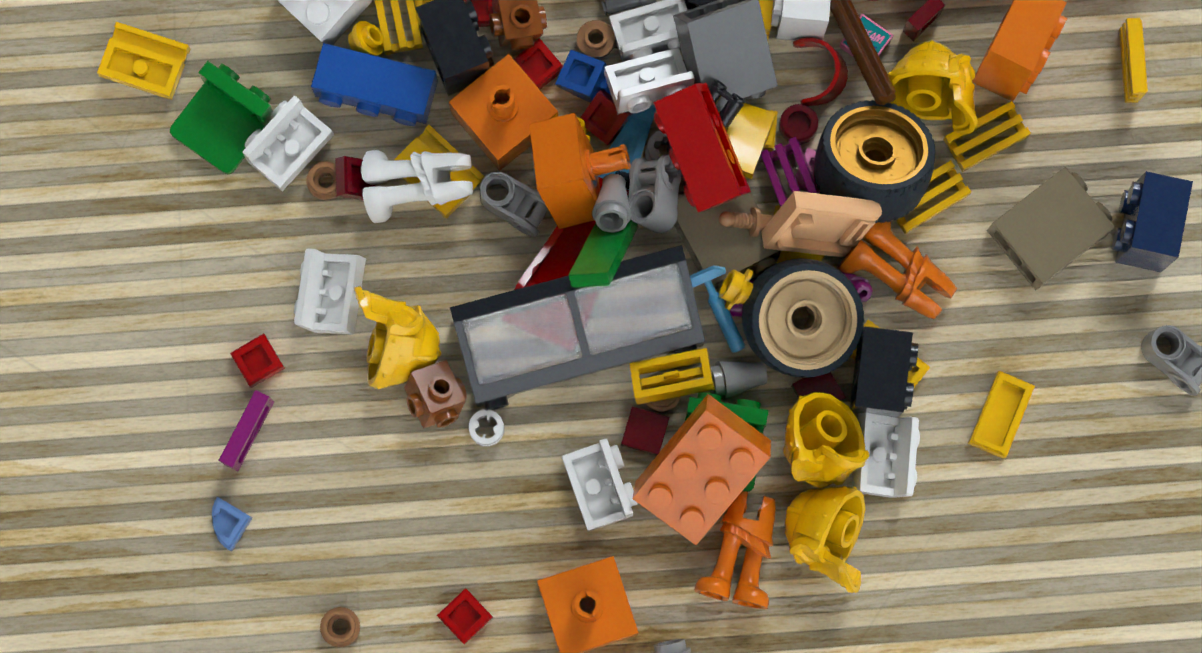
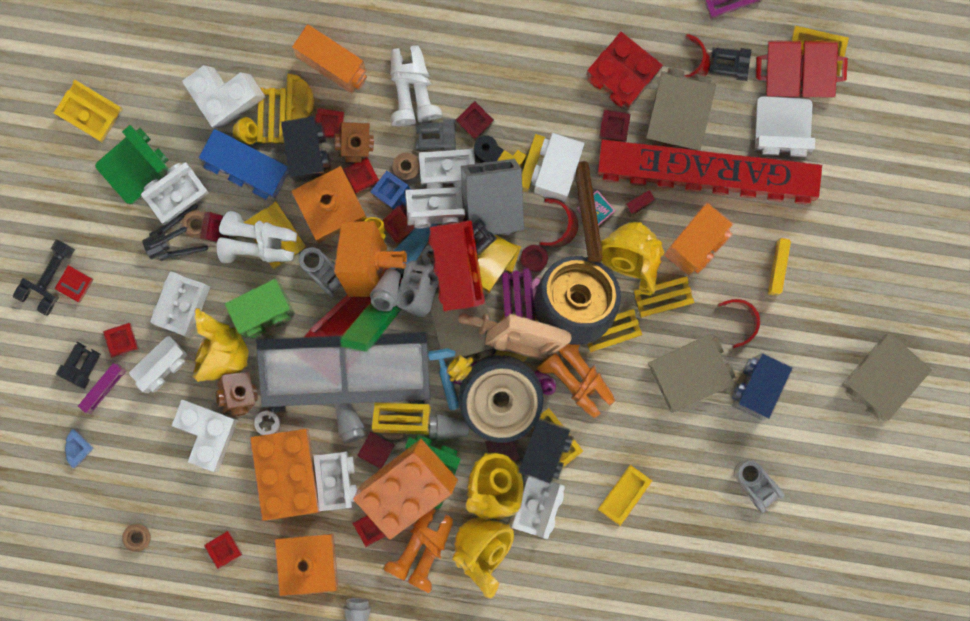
camera: 15 degrees right, 5 degrees up
(148, 257) = (61, 251): none -> black bar
(175, 298) = (74, 284): none -> red tile
(203, 422) = (74, 375): none -> black piece
(278, 214) = (158, 242): none -> black plant
(317, 380) = (161, 361): none -> white bracket
(414, 454) = (212, 433): none -> white brick
(443, 271) = (260, 309): none -> bright green brick
(529, 490) = (285, 474): none -> orange brick
(600, 402) = (349, 424): none -> light grey cone
(662, 542) = (368, 531): none -> red tile
(1114, 128) = (754, 313): none -> red helmet

